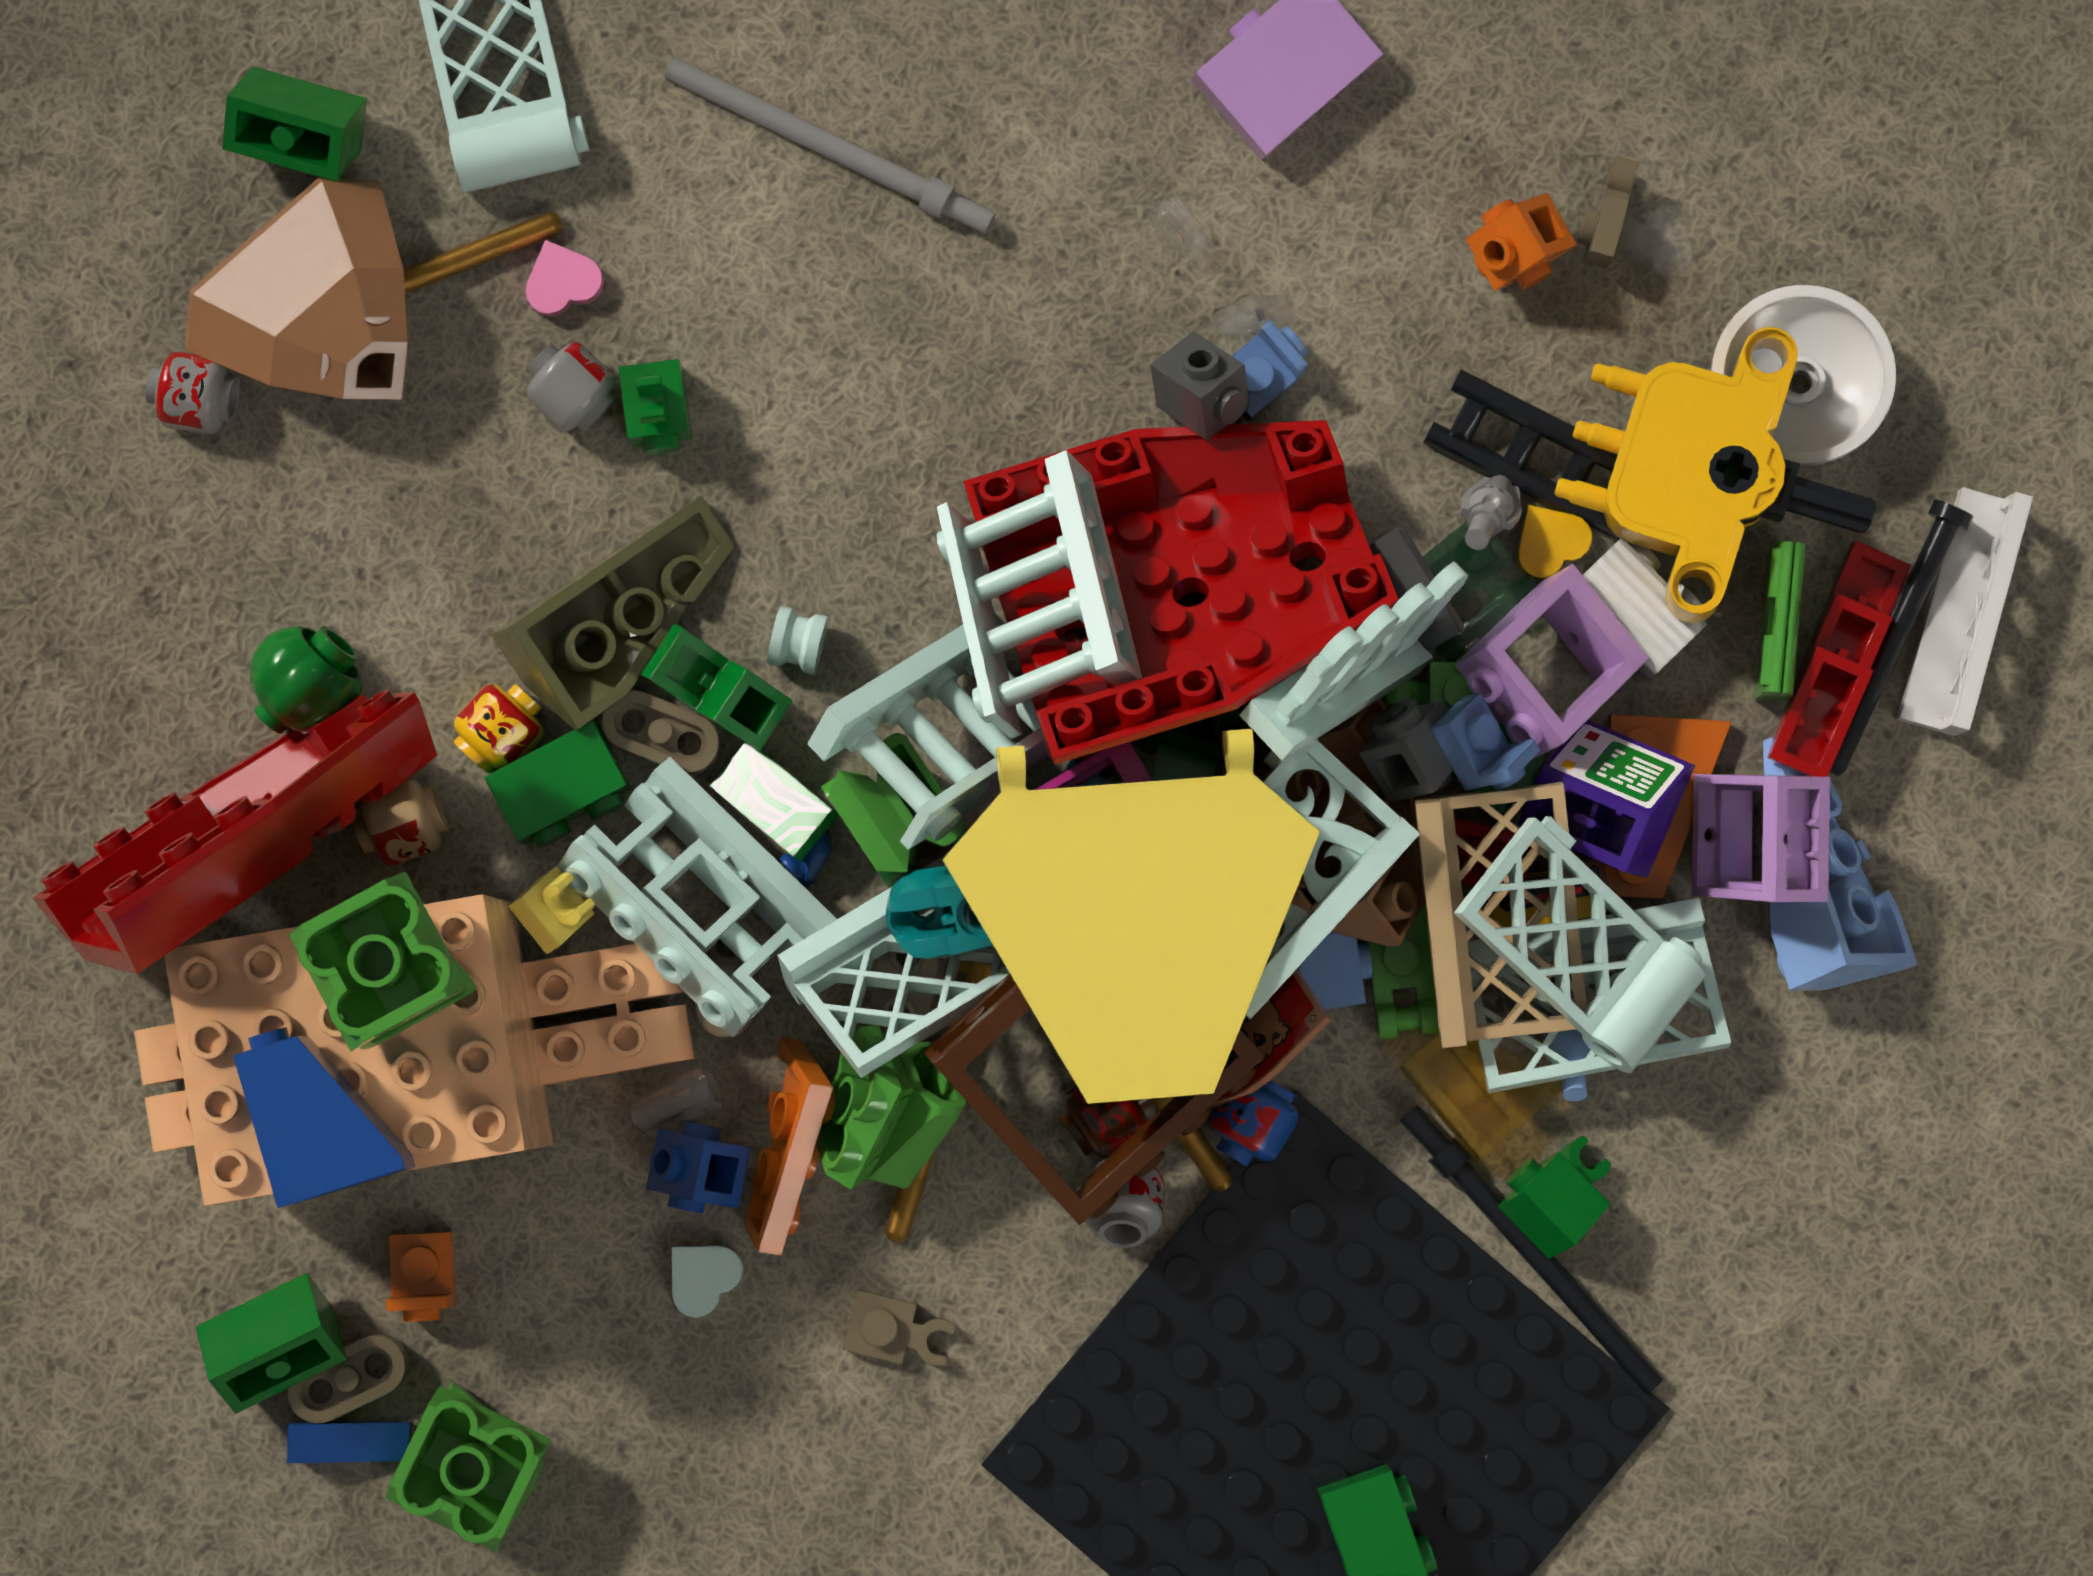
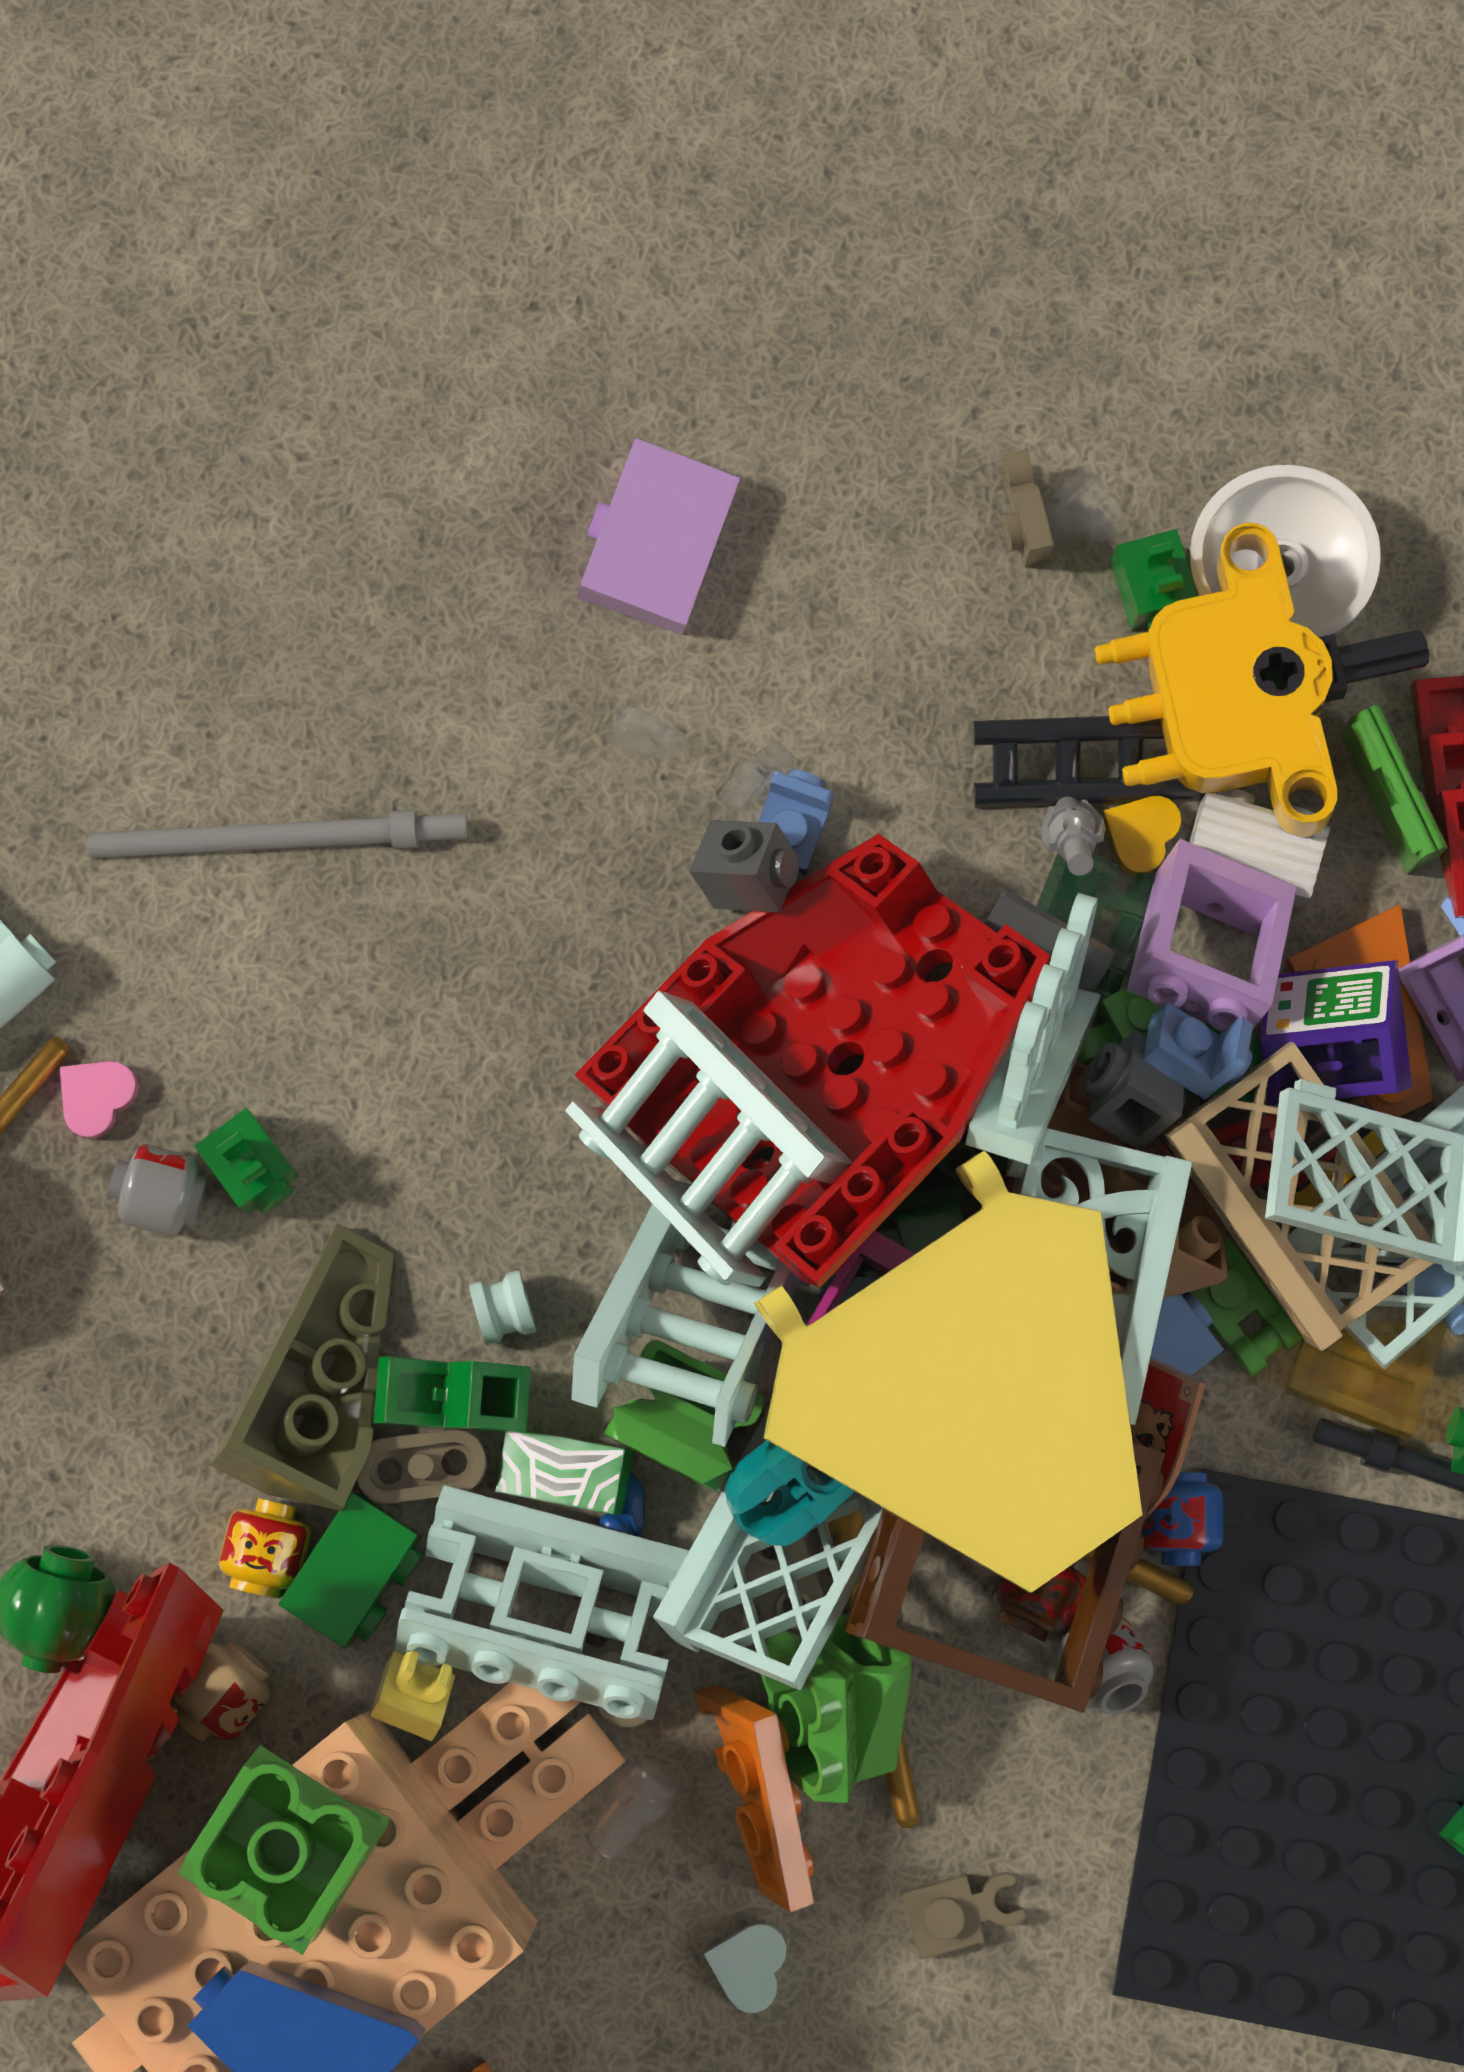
camera: 30 degrees left, 5 degrees down
(697, 1168) = (687, 1864): blue brick -> none
(1520, 242) = (960, 578): orange brick -> none
(1683, 329) = (1151, 576): none -> green brick

